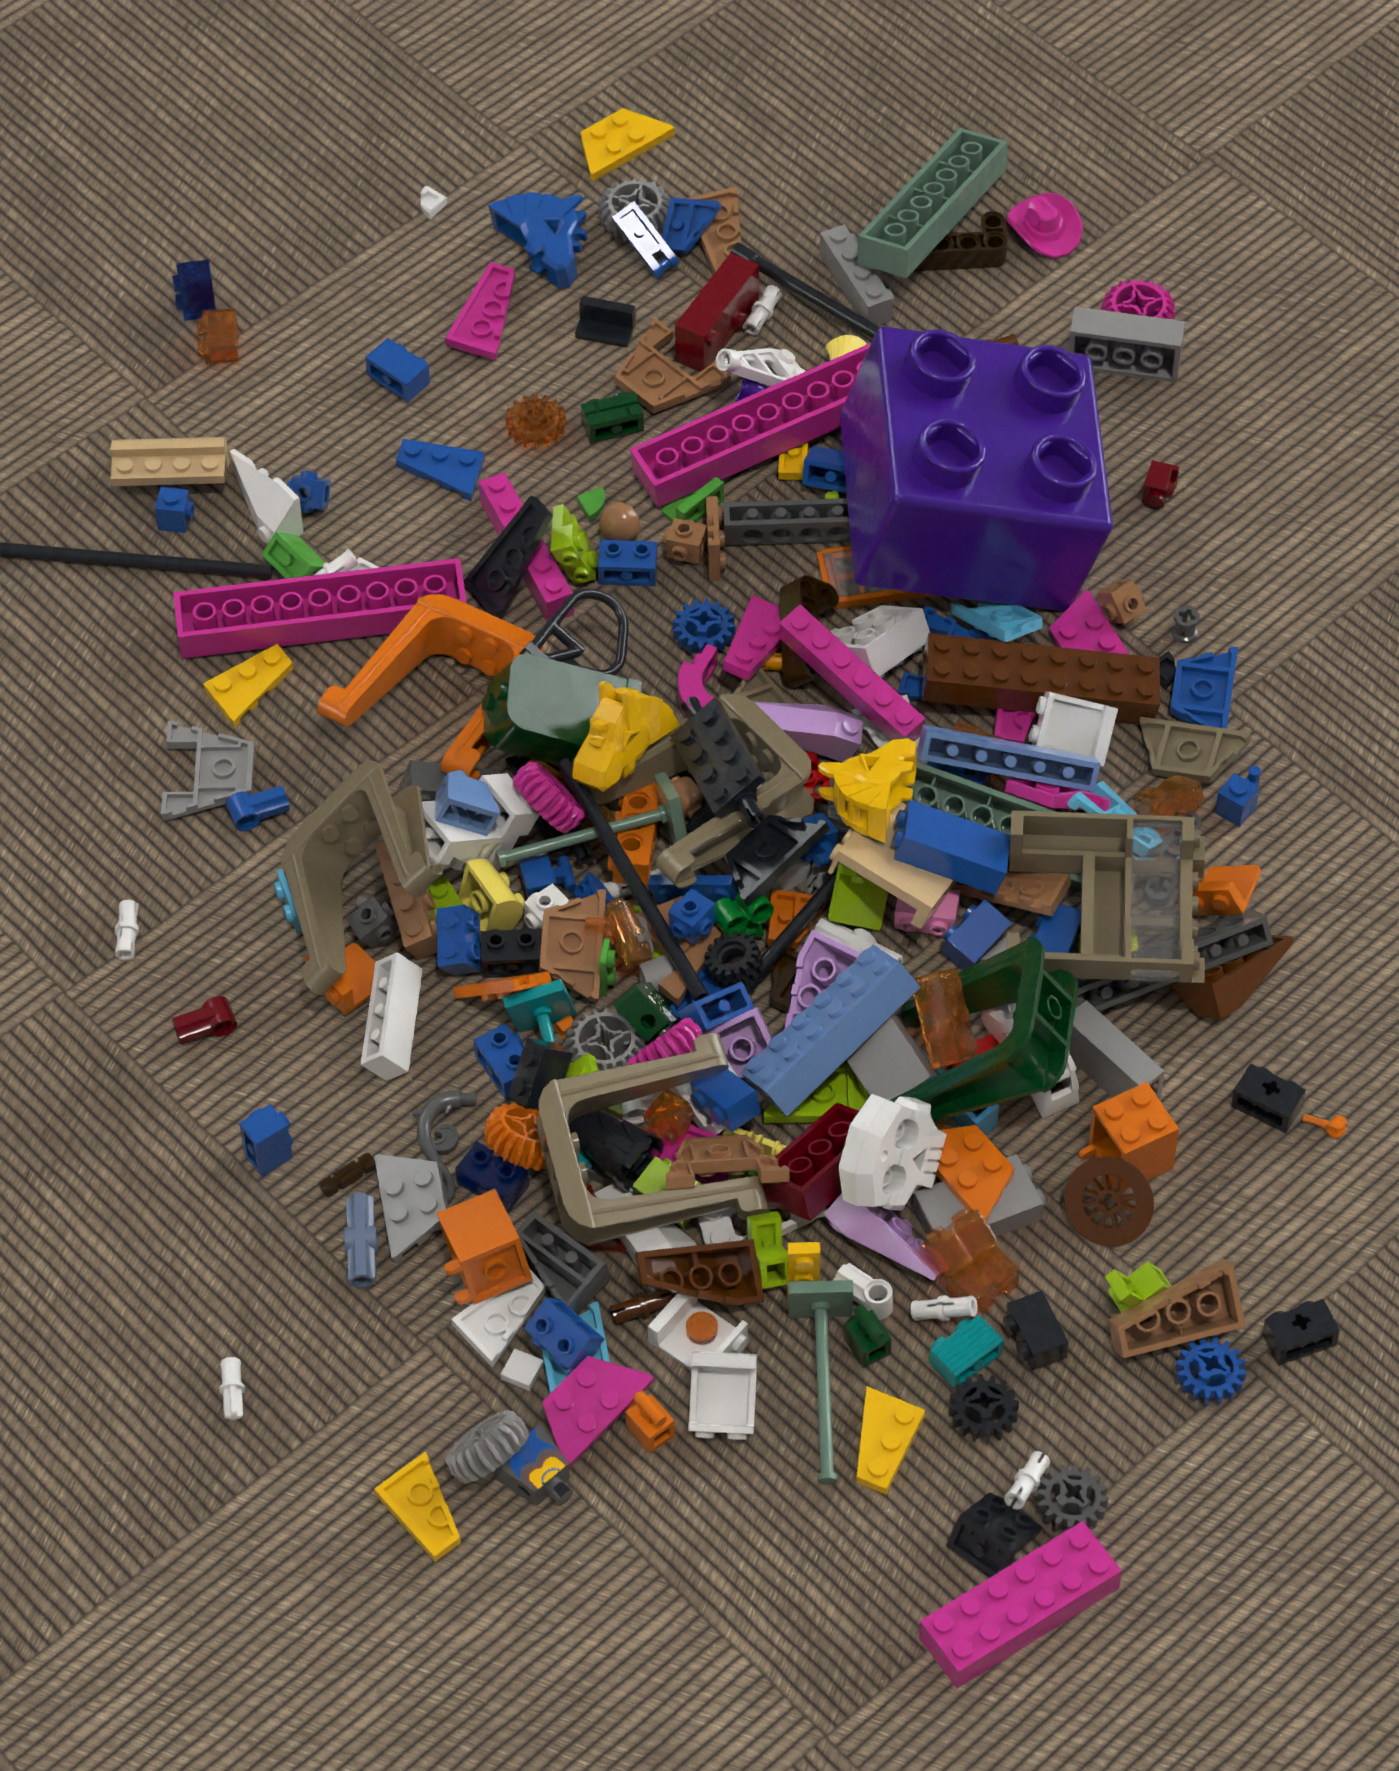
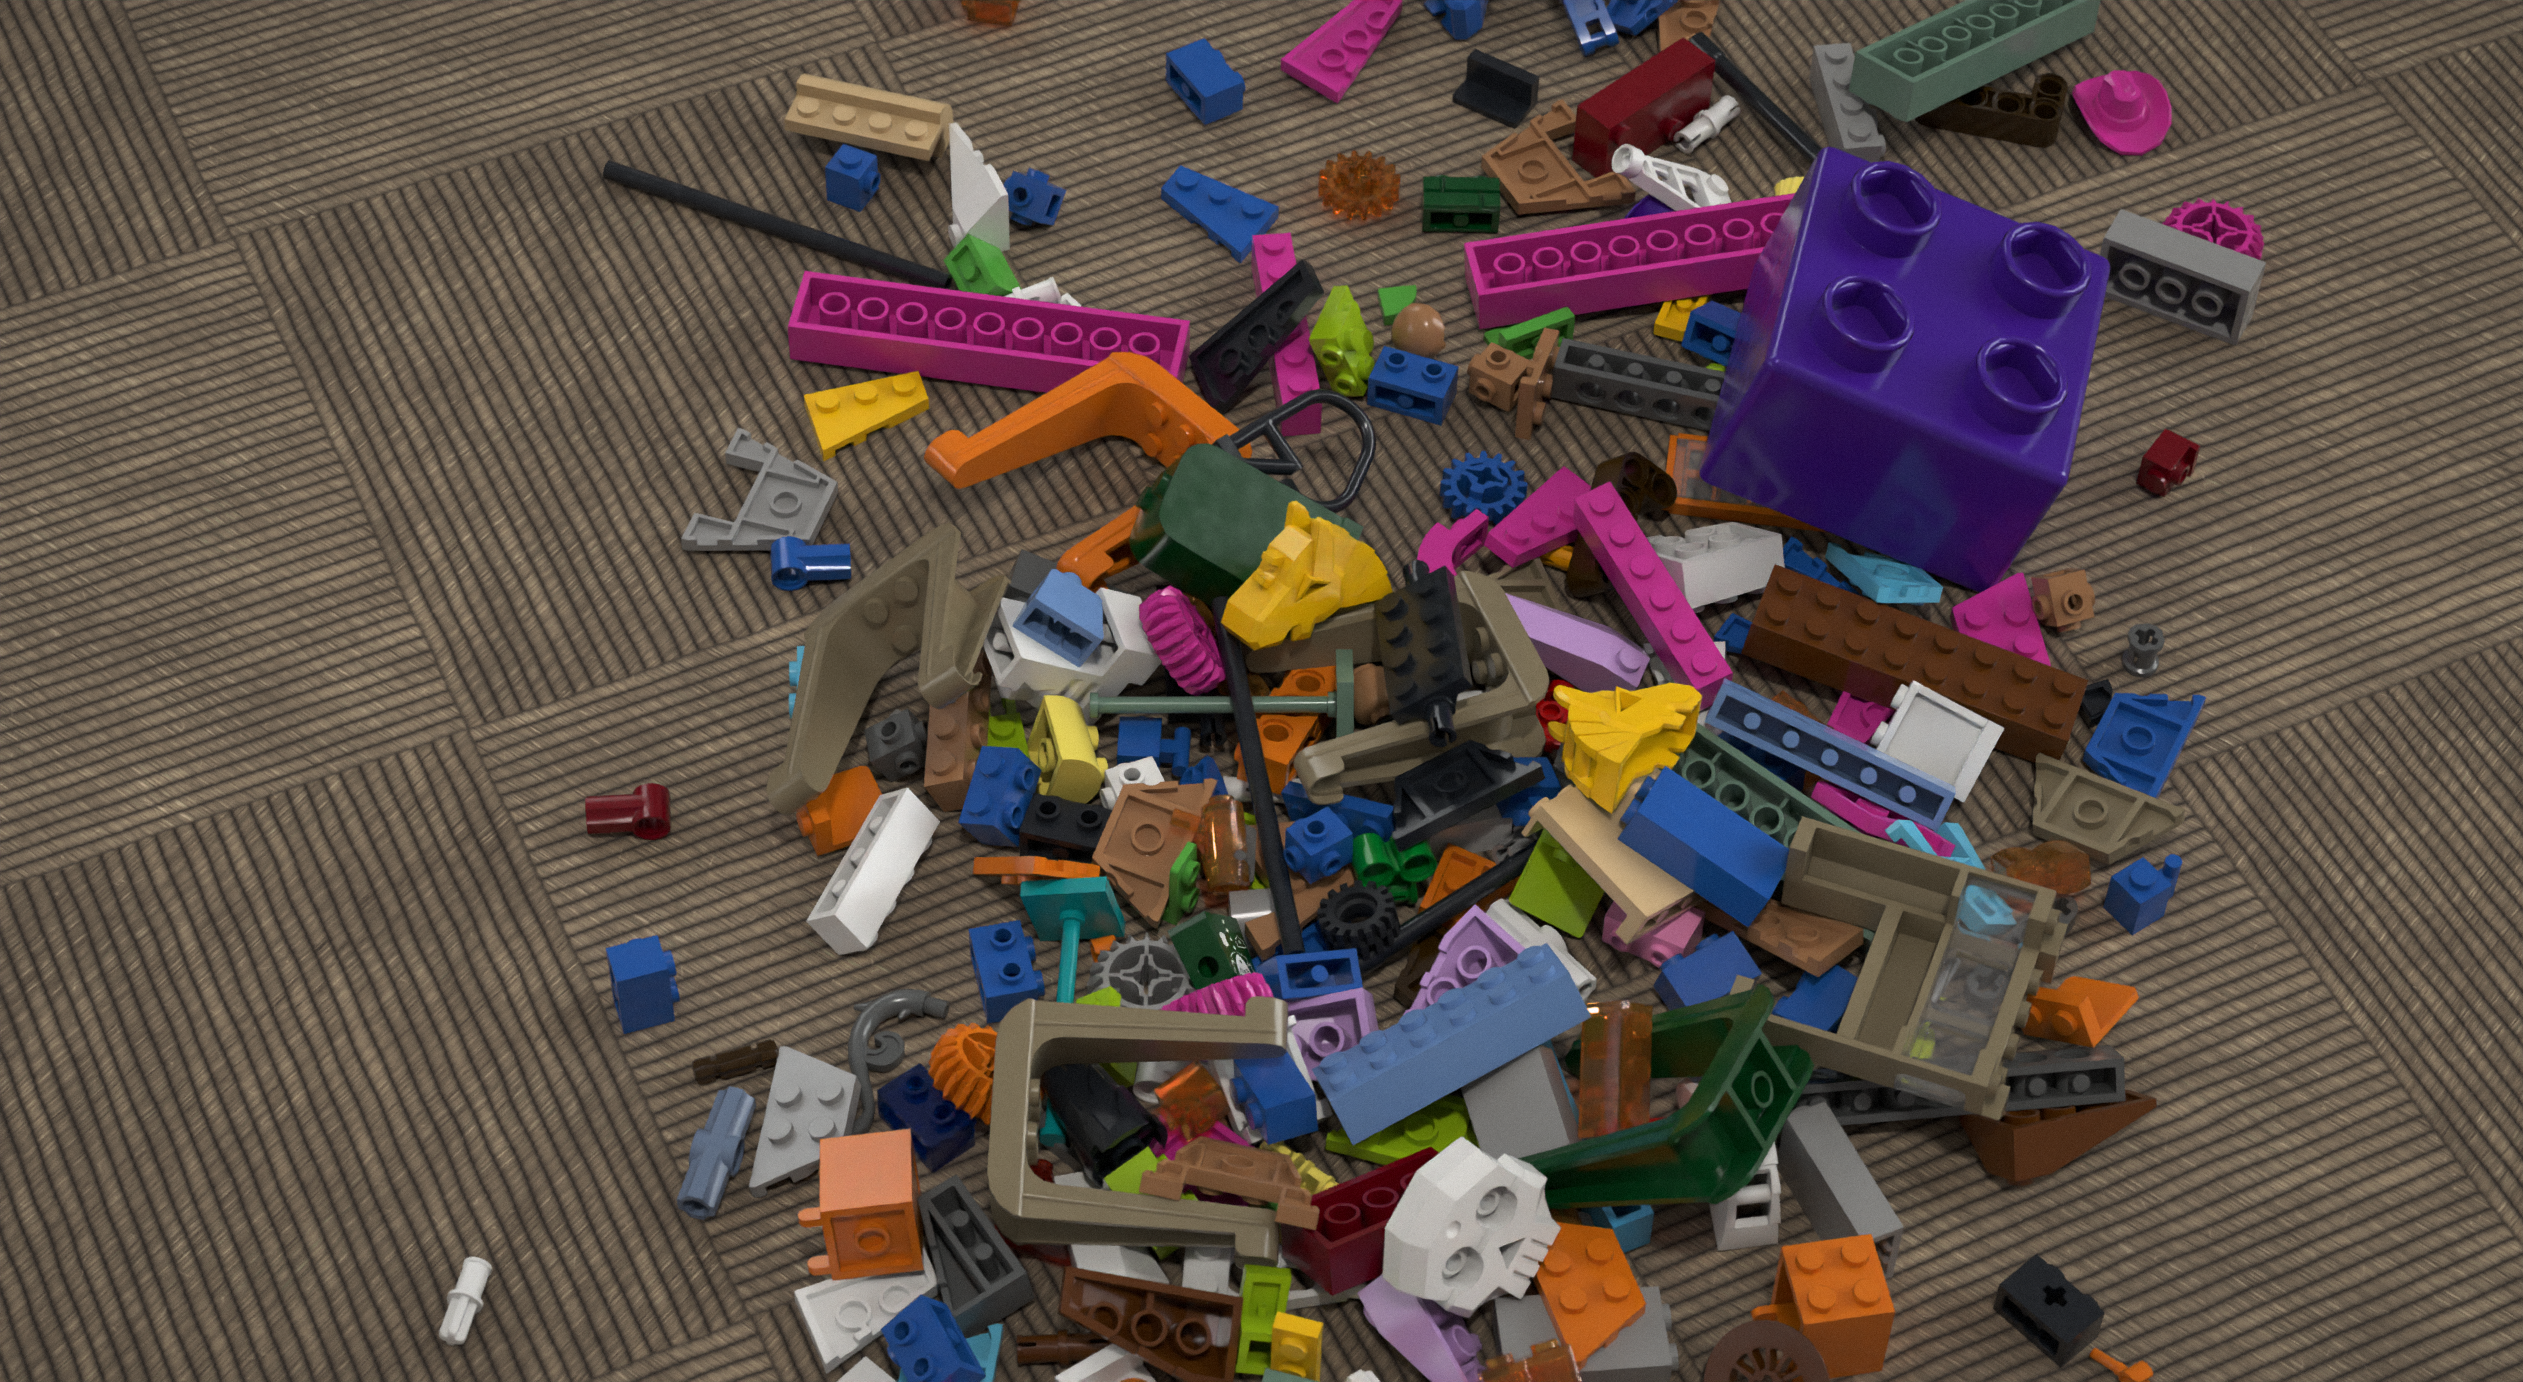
camera: 15 degrees right, 5 degrees down
(126, 930) = (578, 672): white pin -> none
(537, 1066) = (1037, 976): black brick -> none

